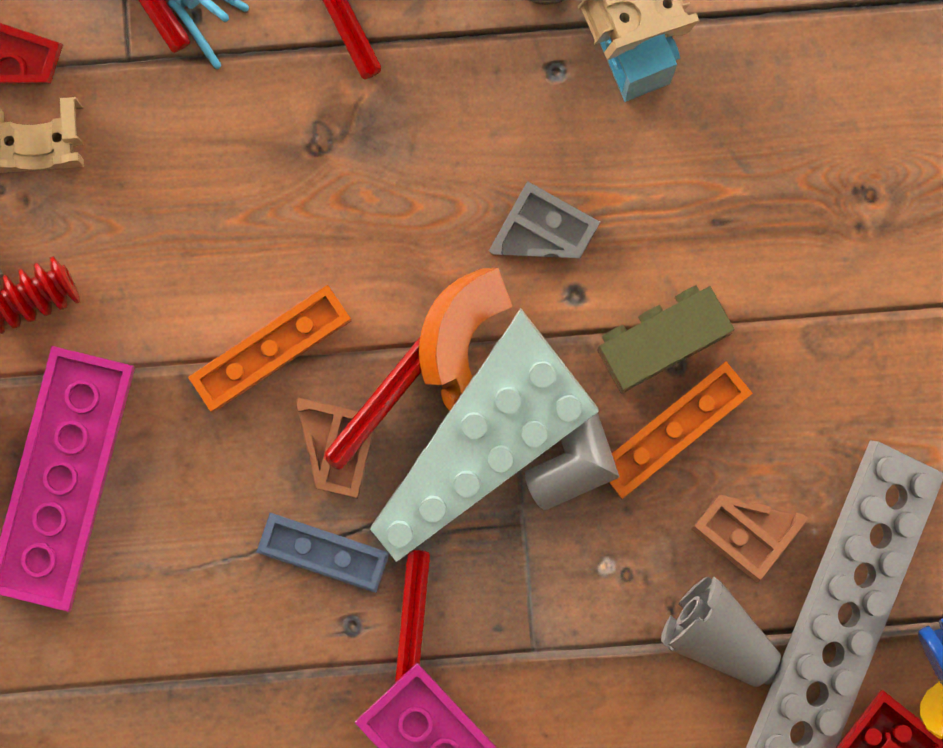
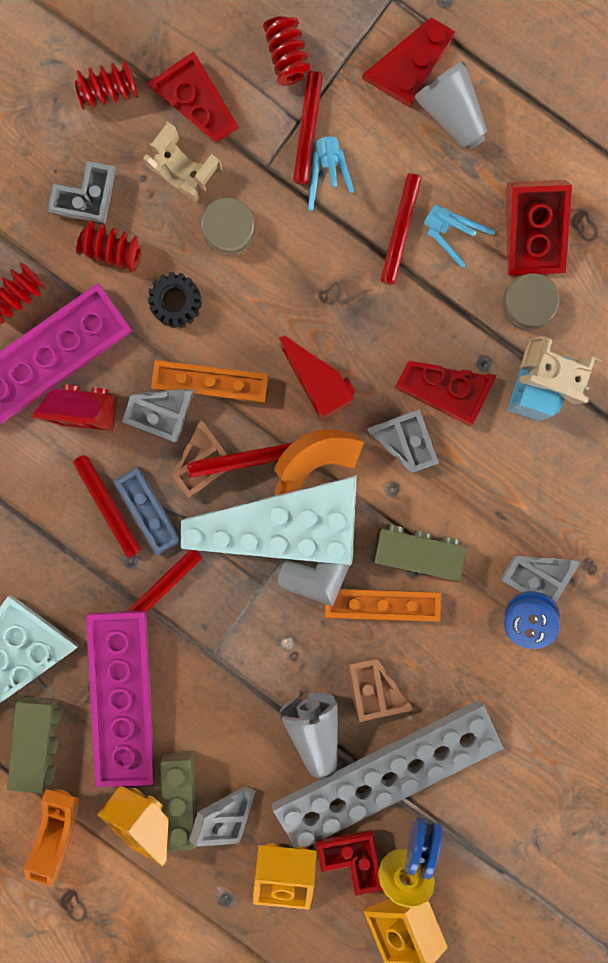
camera: 35 degrees right, 5 degrees up
(135, 275) = (168, 284): none -> black tyre
(143, 161) = (228, 226): none -> dark tan head
(151, 501) = (78, 408): none -> red slope
(242, 429) = (159, 411): none -> light grey wing
(272, 586) = (106, 506): none -> red axle
(393, 243) = (321, 383): none -> red slope
(541, 135) = (446, 390): none -> red wing
(819, 253) = (539, 574): none -> light grey wing
(850, 304) = (532, 620): none -> blue head

